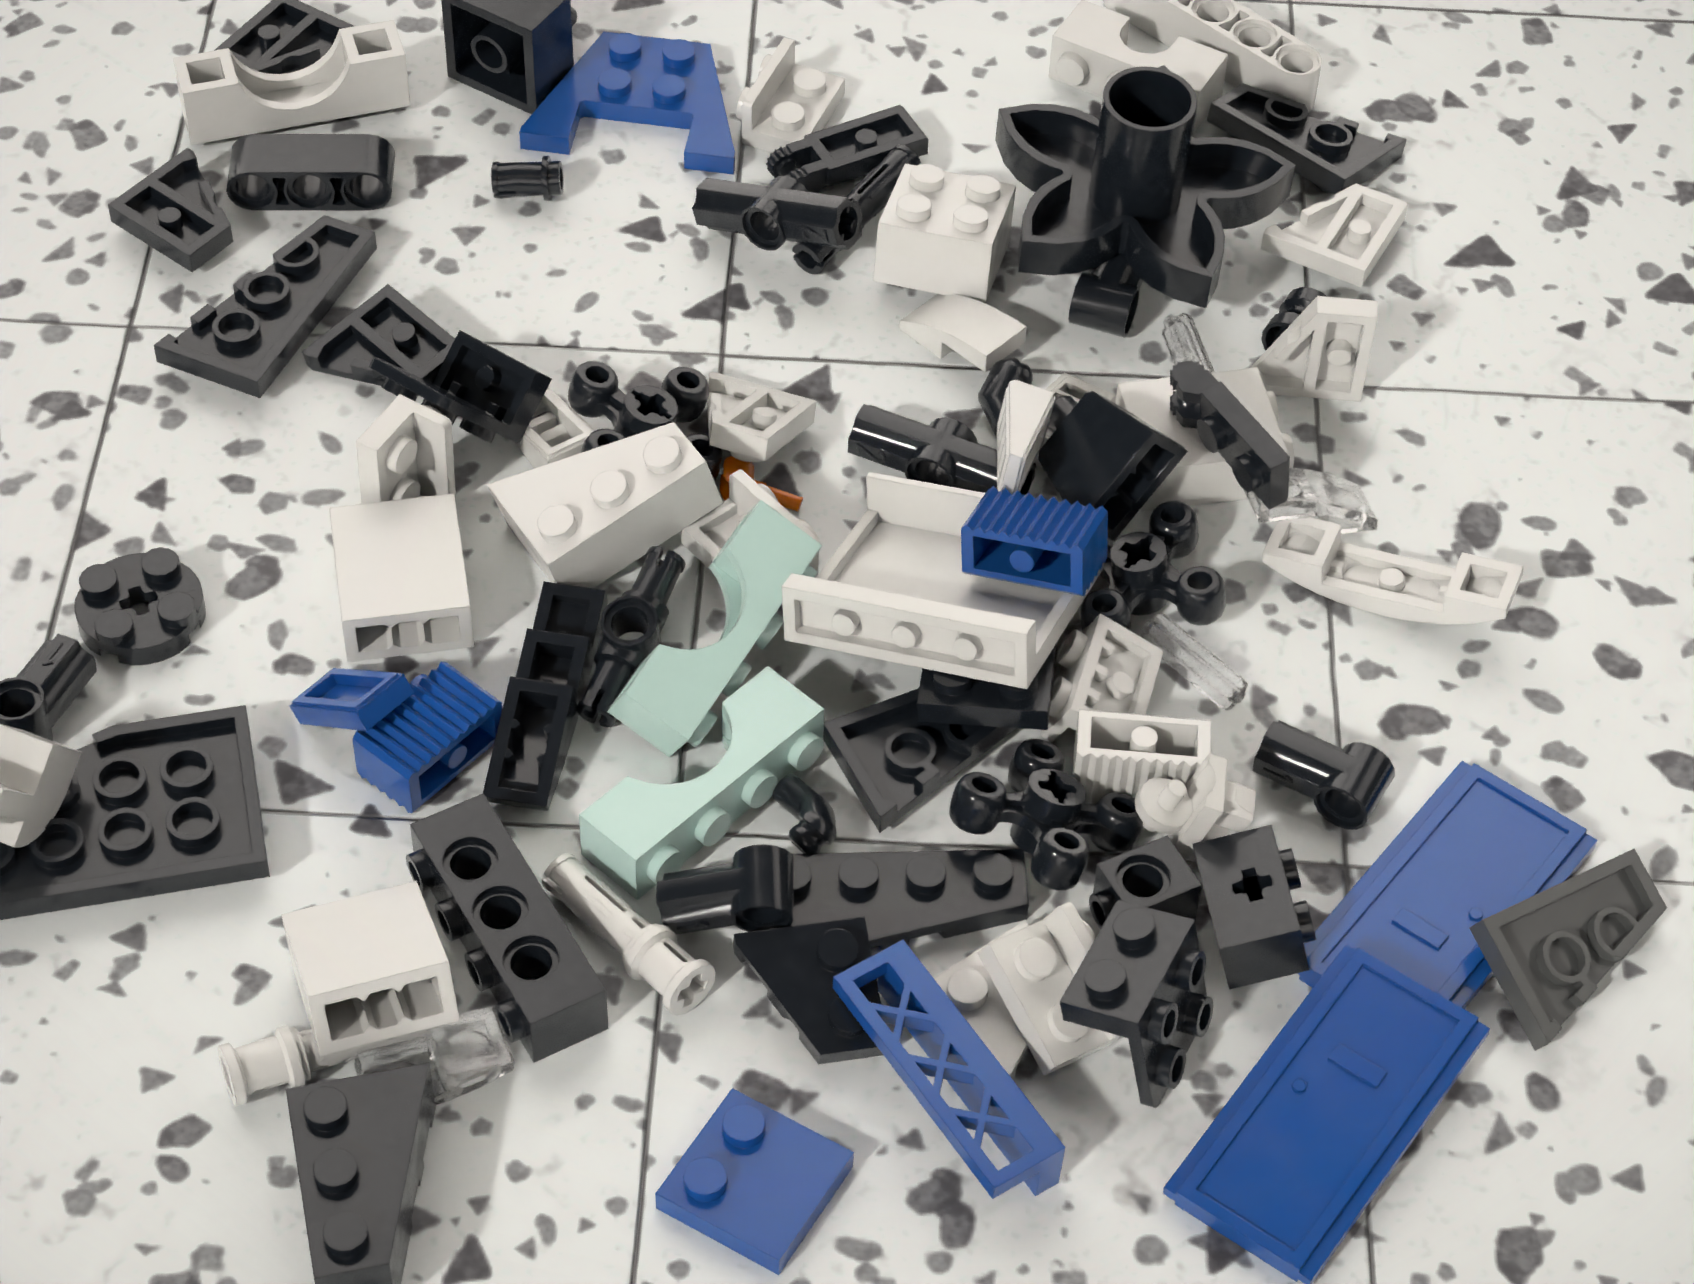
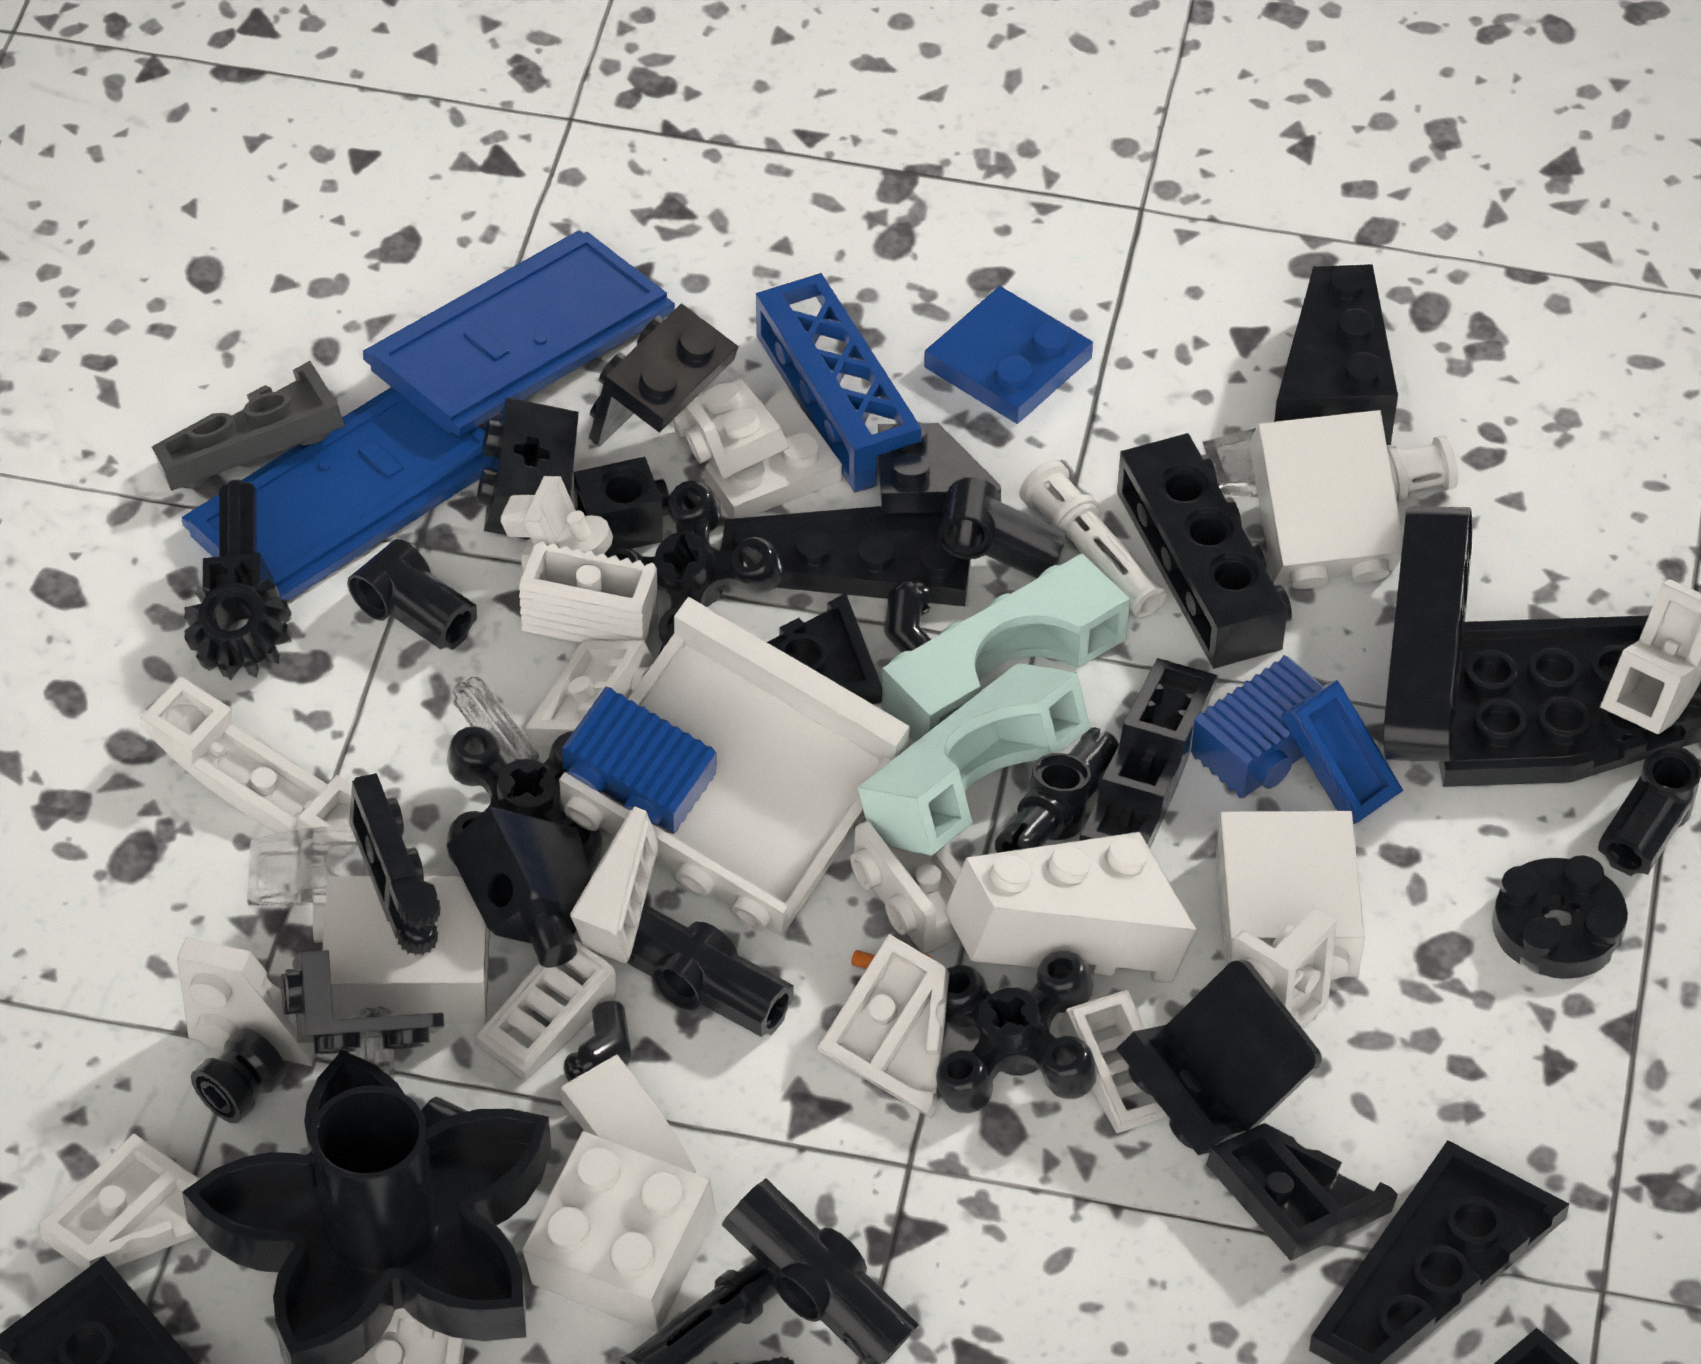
camera: 170 degrees left, 0 degrees up
(257, 816) = (1428, 634): none -> black beam
(1210, 308) = (309, 995): none -> black bracket
(1493, 726) = (234, 589): none -> black gear

